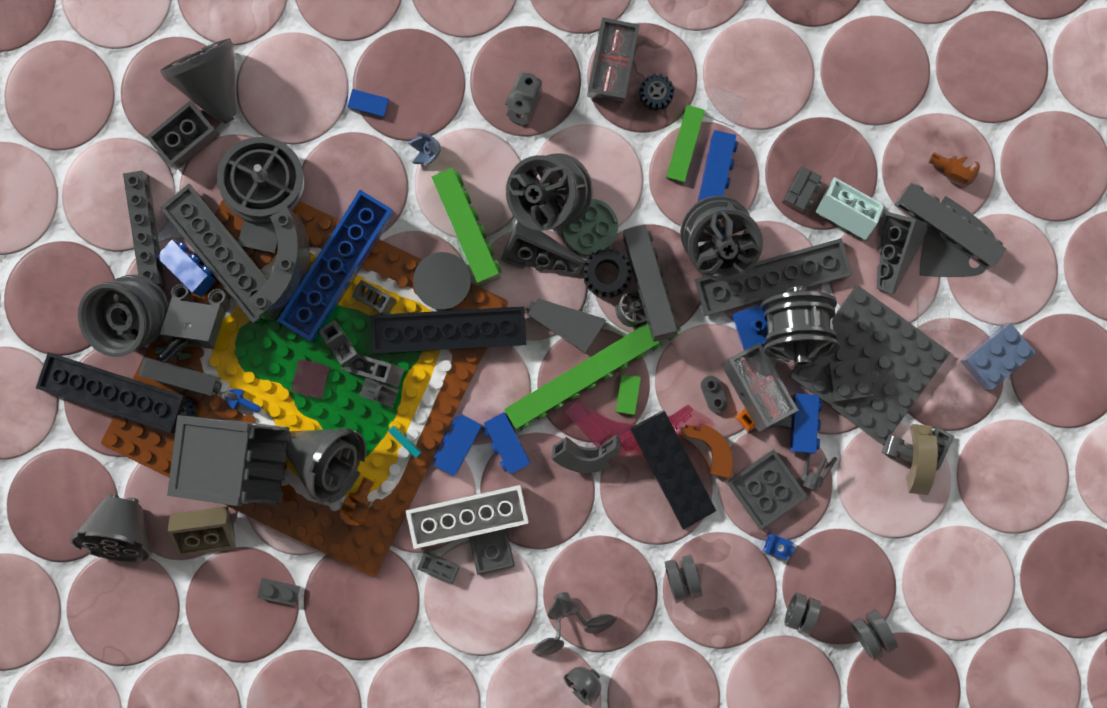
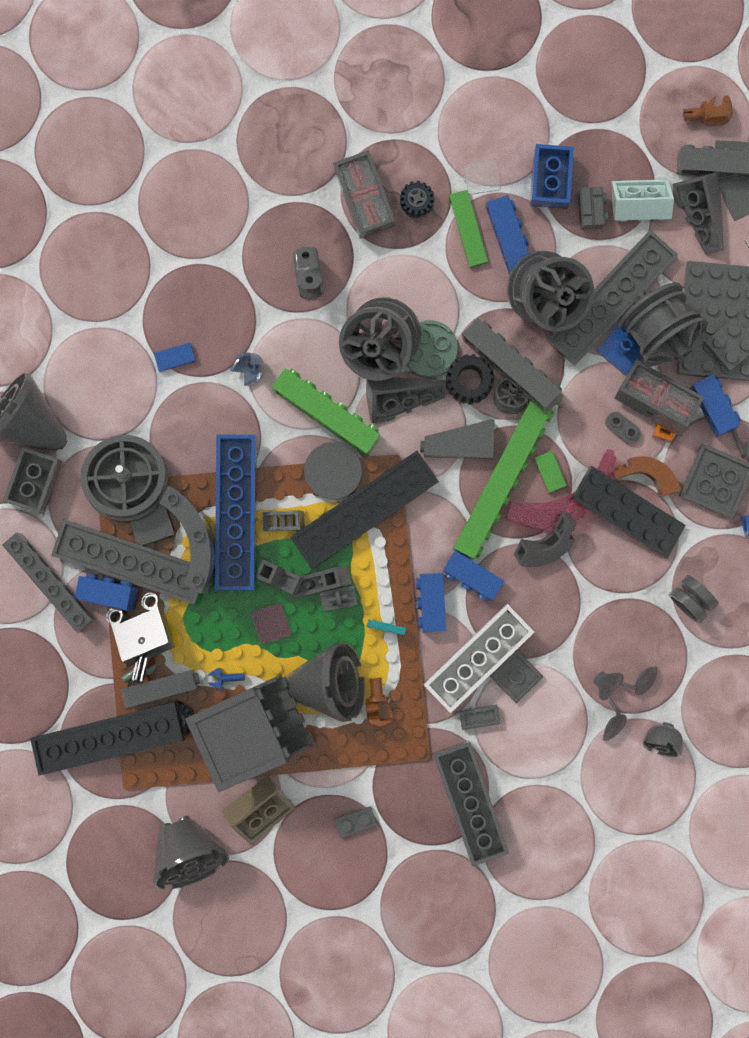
camera: 30 degrees left, 0 degrees up
(125, 321) = (80, 684): dark grey wheel -> none
(384, 636) = (470, 803): none -> dark grey brick
(784, 141) = (551, 176): none -> blue brick

